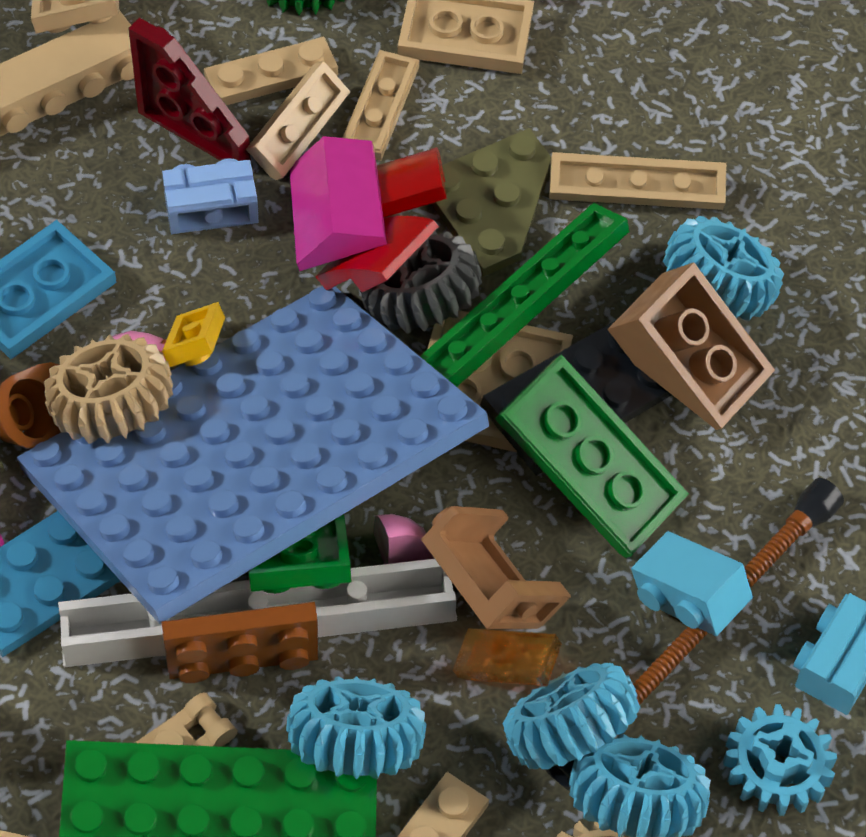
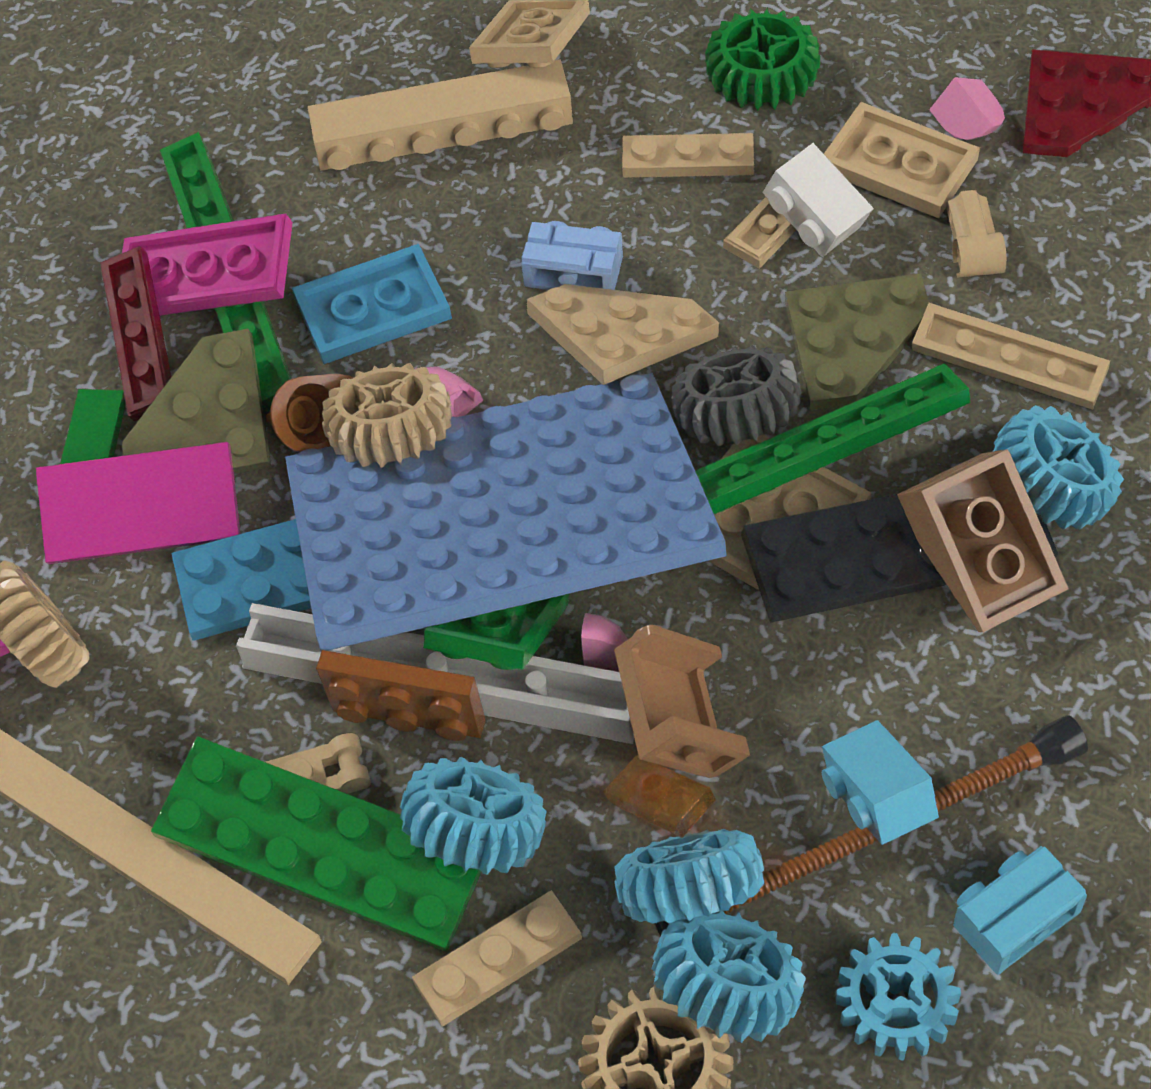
camera: 30 degrees right, 0 degrees up
(180, 97) = (577, 153): dark red plate -> none
(194, 336) = (493, 387): yellow plate -> none
(256, 253) = (618, 329): none -> tan plate
(298, 120) = (690, 208): tan plate -> none
(336, 201) = (685, 294): dark pink slope -> none
(377, 265) = (699, 353): red slope -> none
(411, 182) = (757, 296): red slope -> none
(414, 84) = (817, 200): none -> white brick
(564, 86) = (974, 237): none -> tan piece
(592, 456) = (831, 620): green tile -> none

